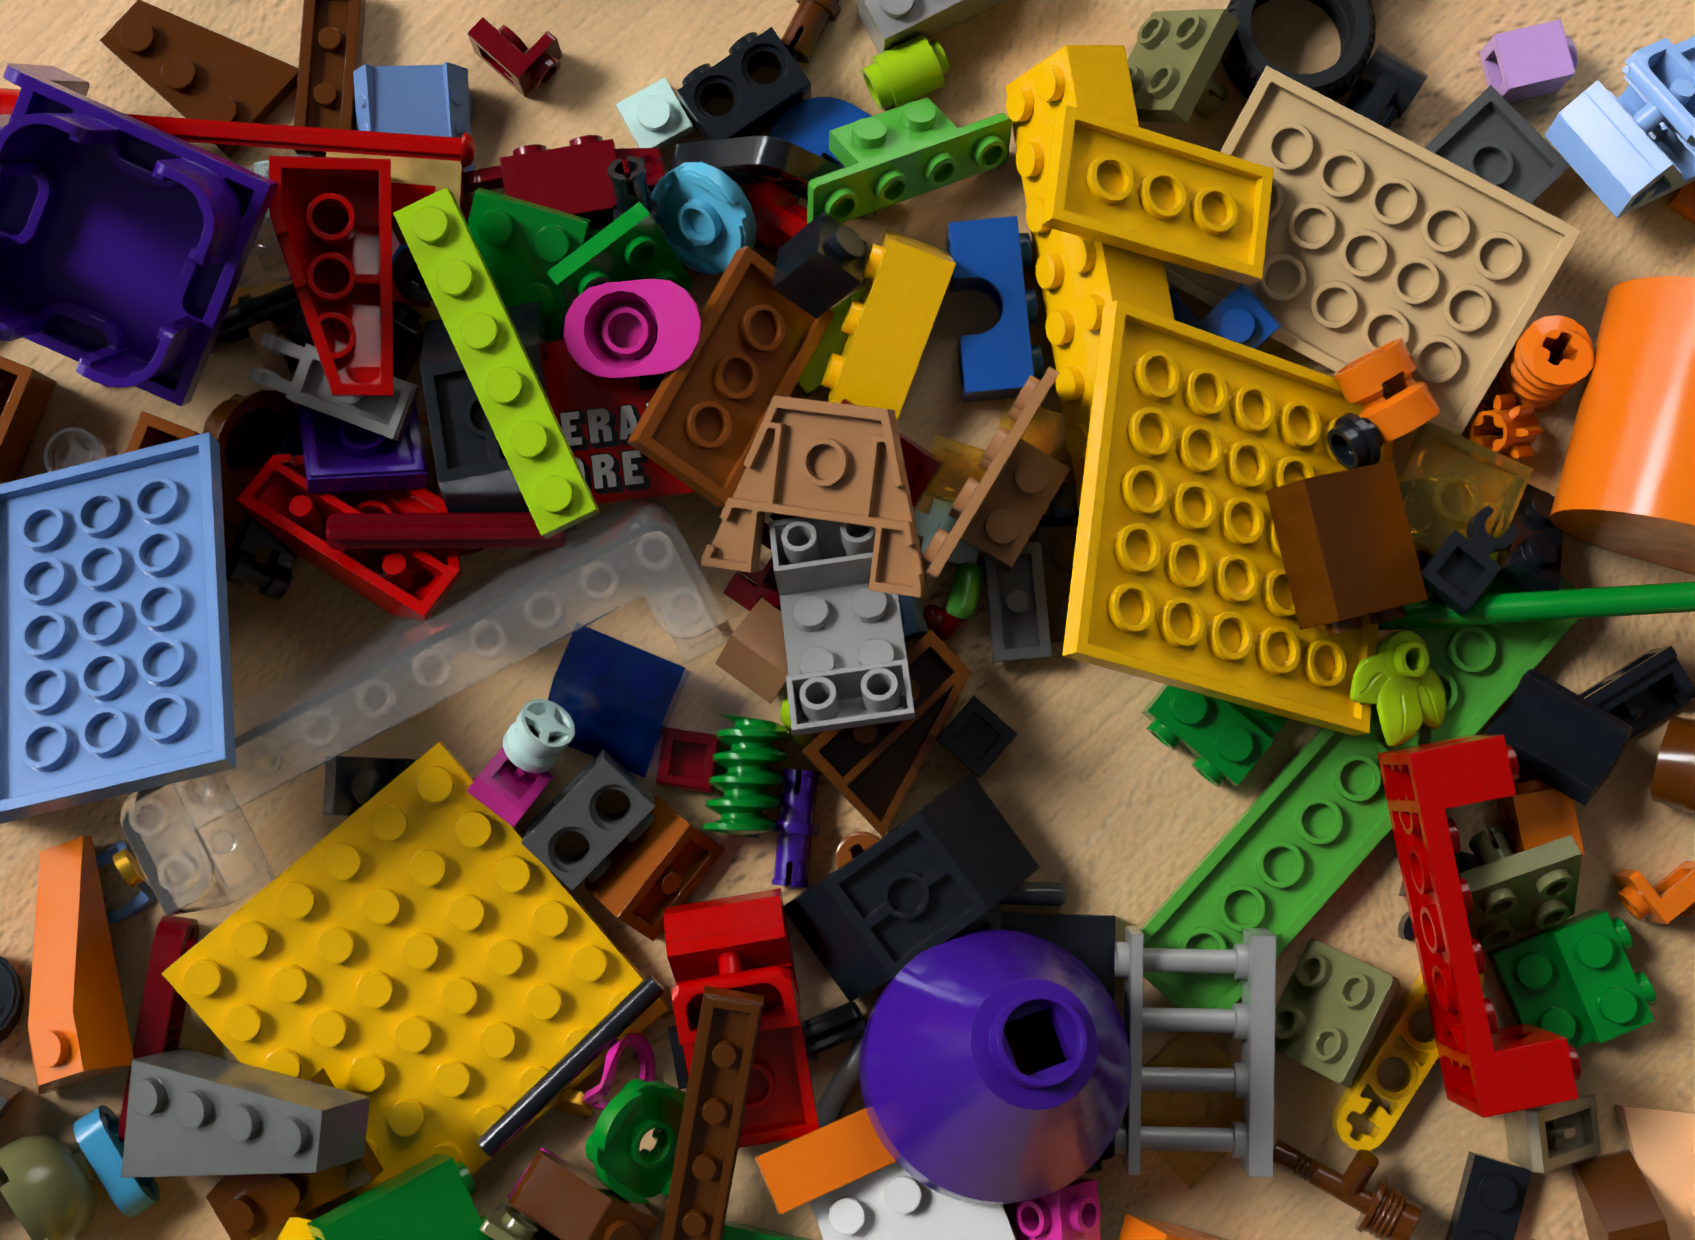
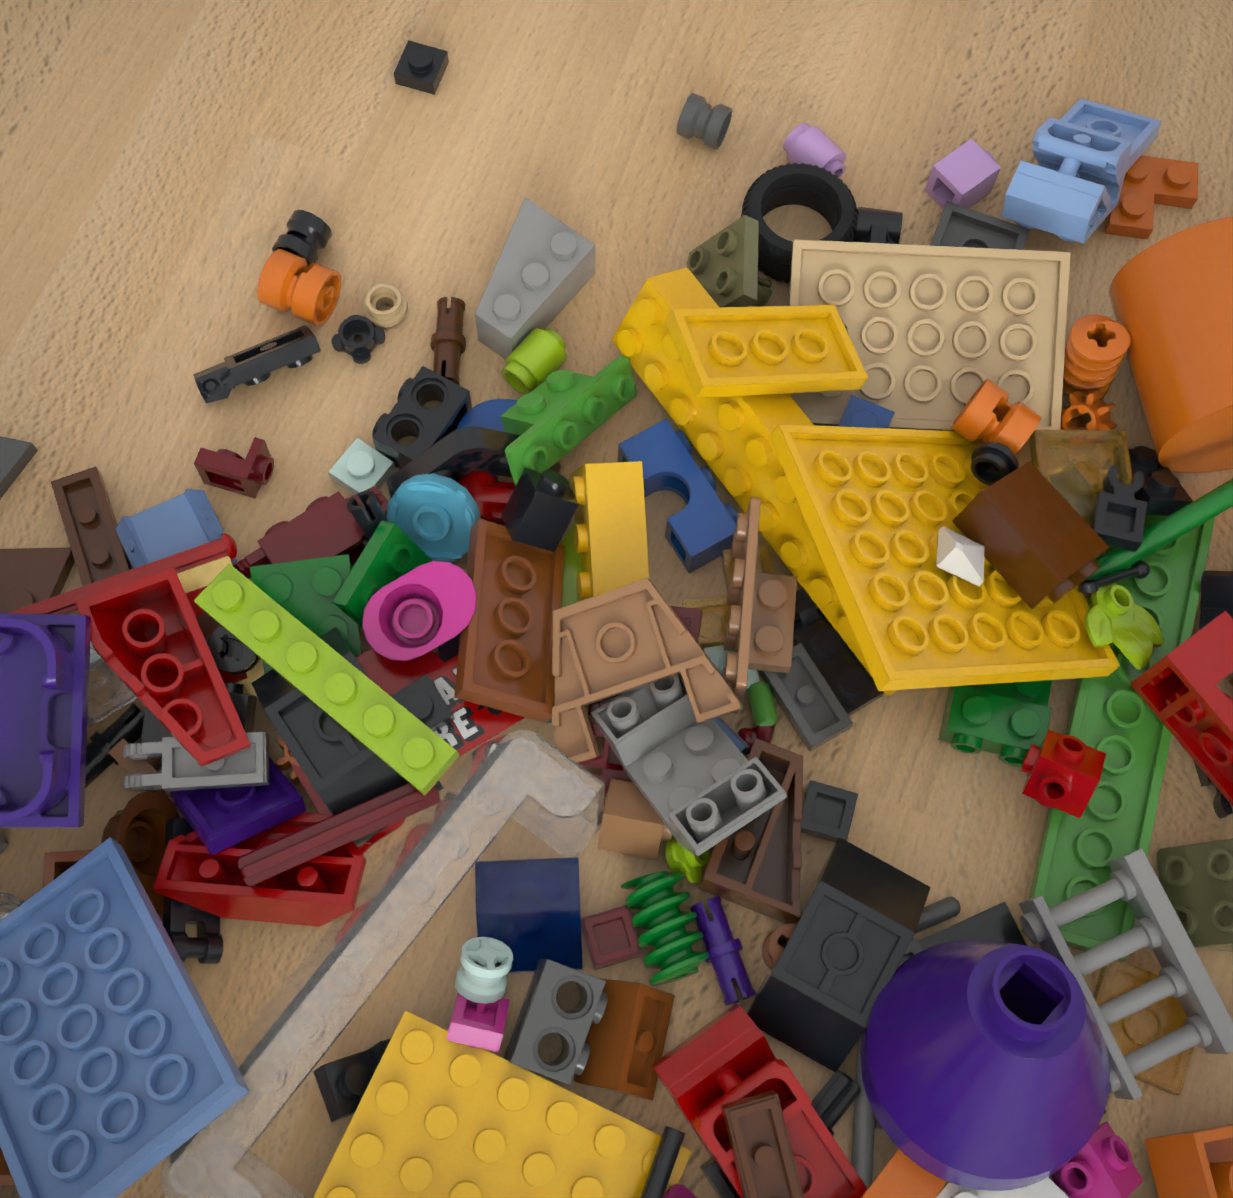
camera: 25 degrees left, 15 degrees down
(592, 430) = (425, 703): none -> black plate
(1240, 817) = (1062, 772): none -> red brick
(1248, 538) = (960, 556): none -> white slope
(1457, 634) = (1138, 570): none -> black hinge

